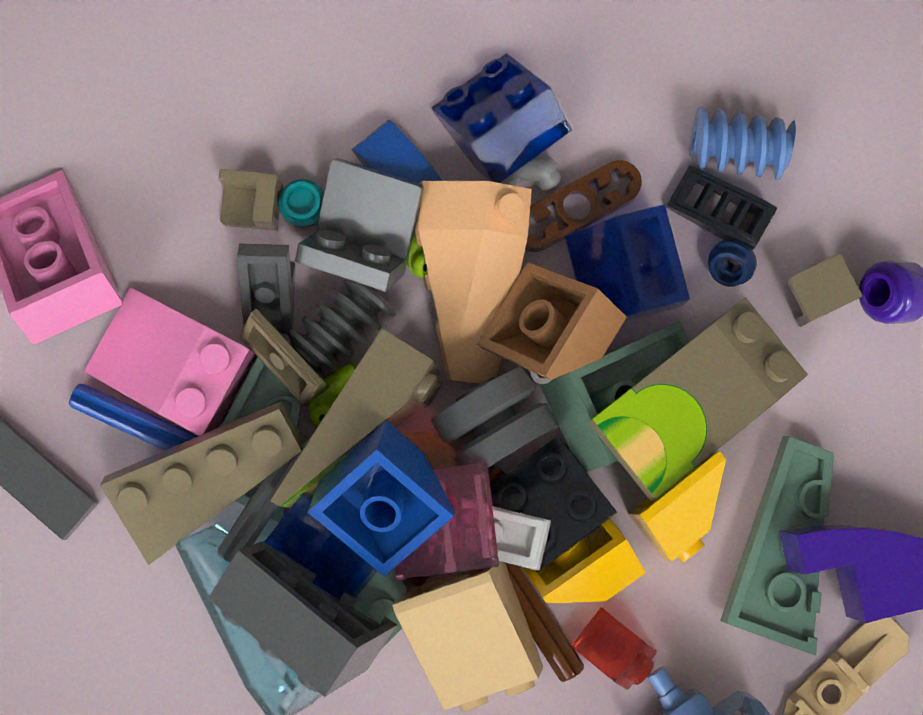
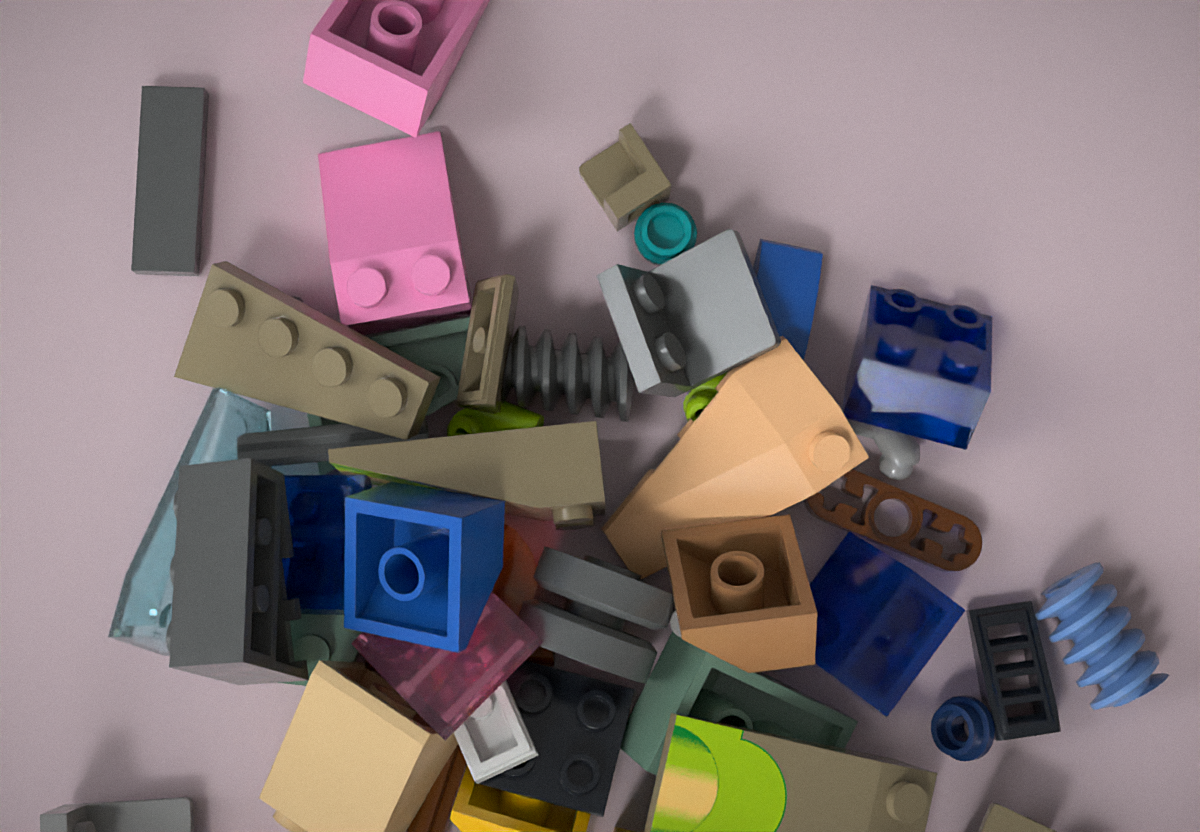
camera: 50 degrees right, 0 degrees up
(127, 418) = (305, 236): blue axle -> none
(267, 283) = (552, 265): dark grey slope -> none

